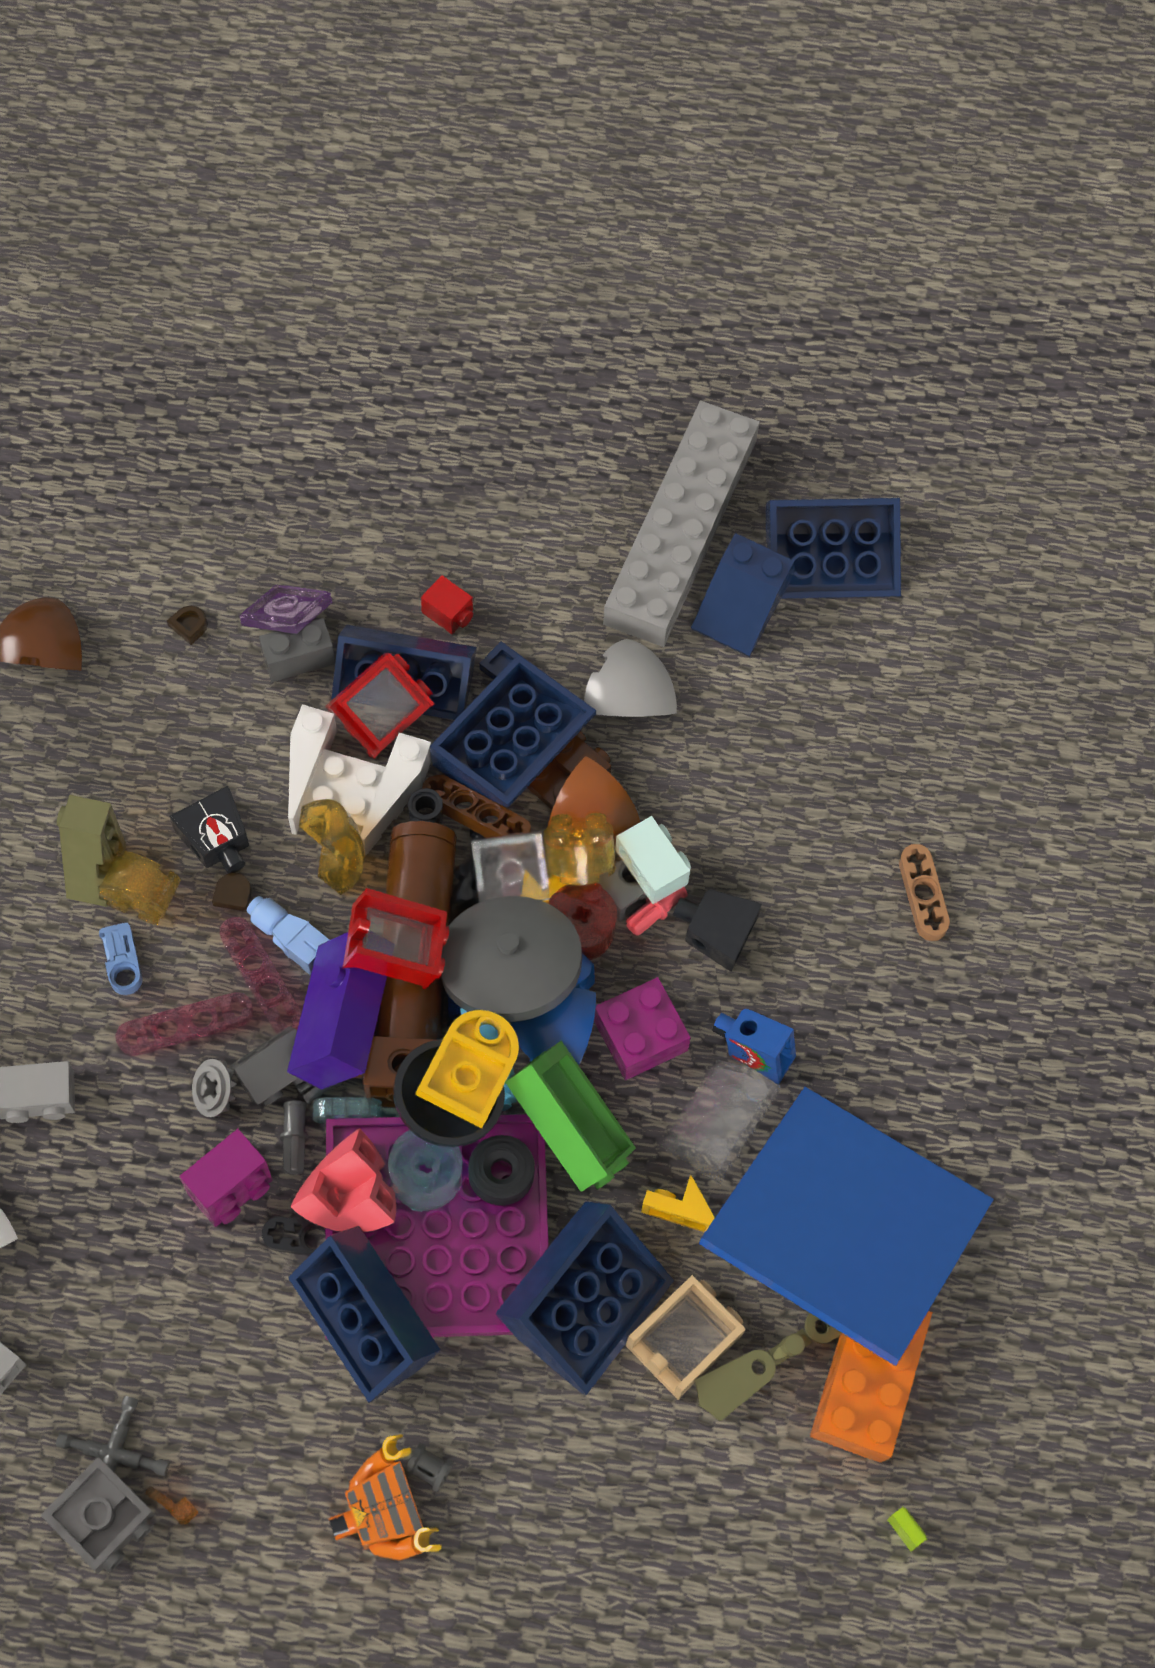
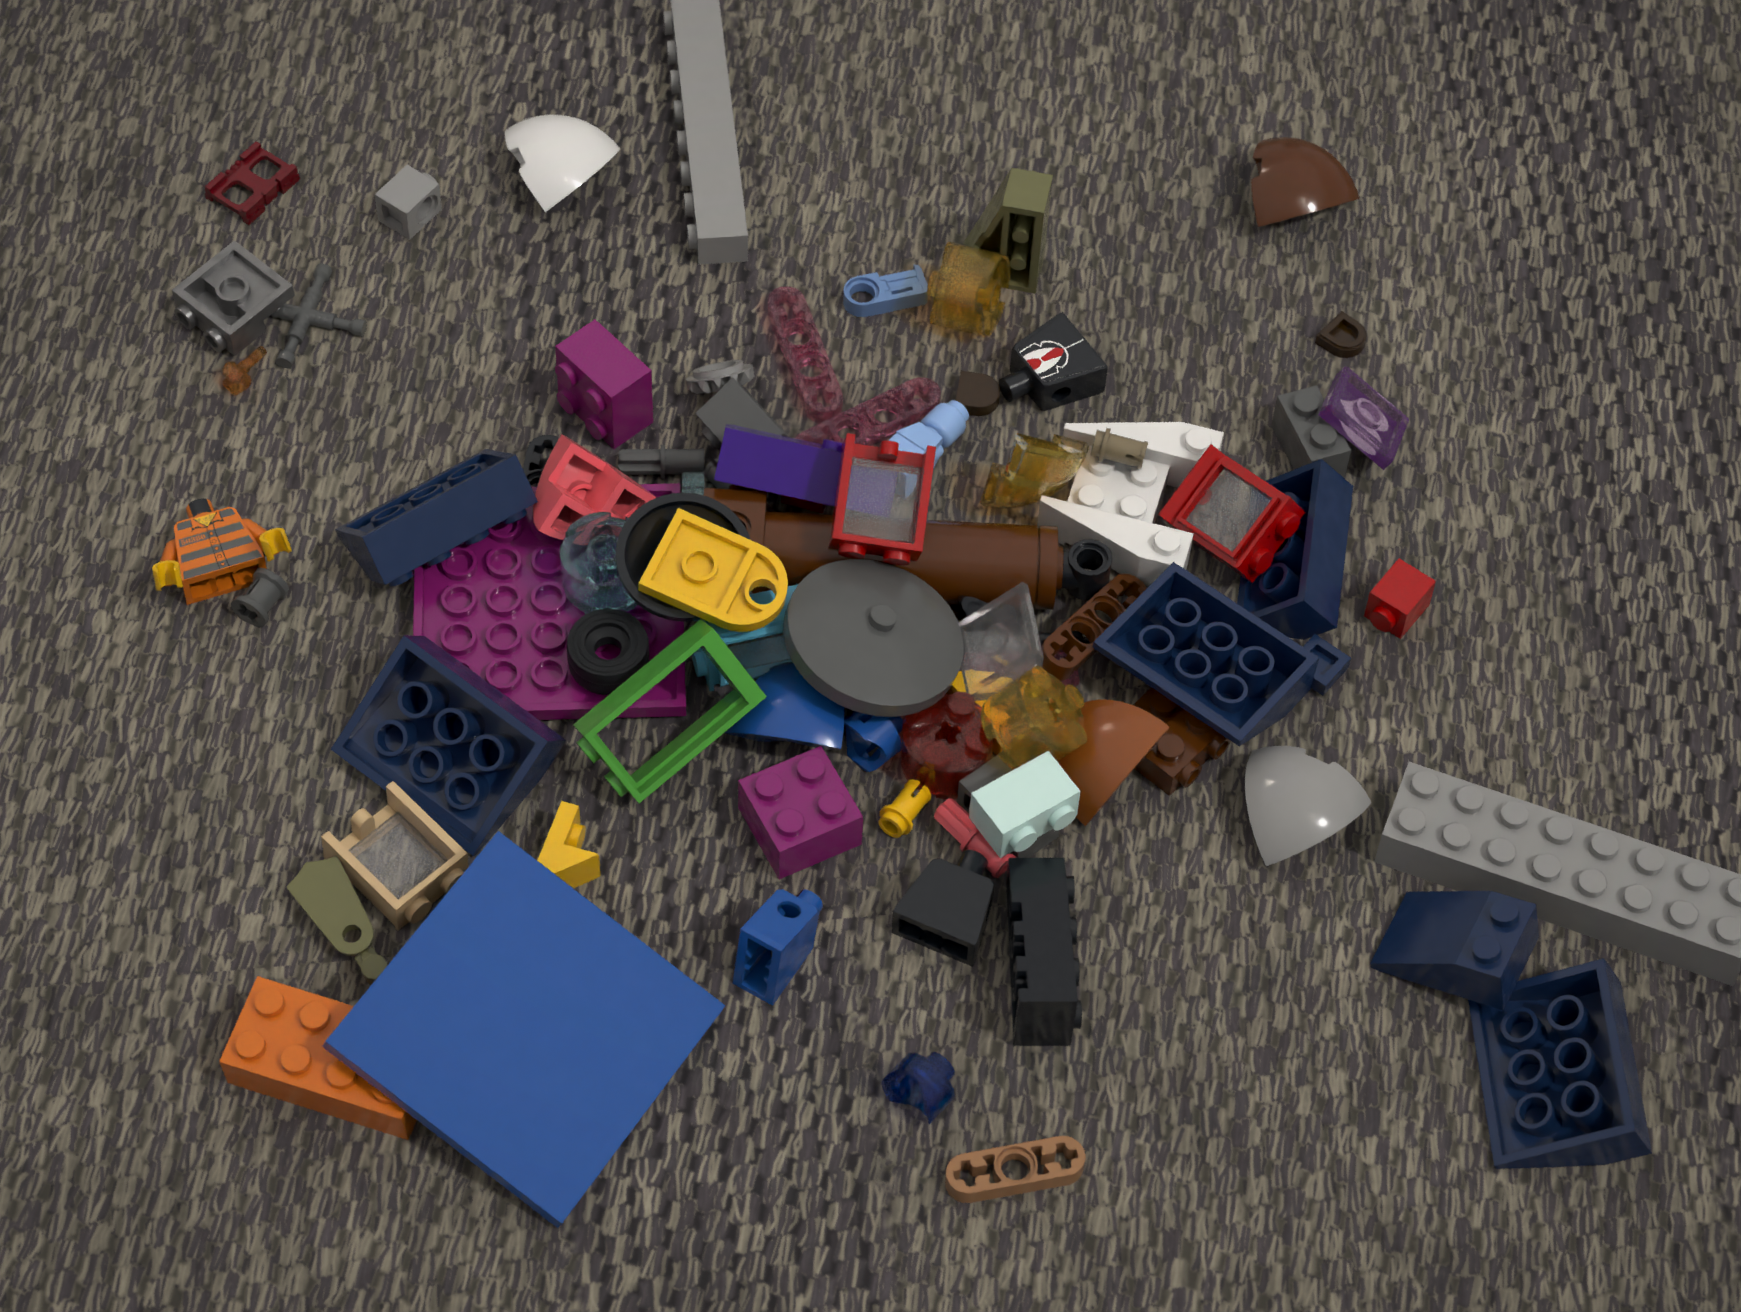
camera: 90 degrees right, 10 degrees down
(317, 785) = (1118, 449): none -> dark tan pin
(631, 956) = (898, 817): none -> yellow pin
(720, 1119) = (674, 907): clear slope -> none
(760, 861) = (1041, 952): none -> black wedge
(868, 945) = (921, 1083): none -> clear blue piece
(907, 1528) = (137, 1095): lime tile -> none

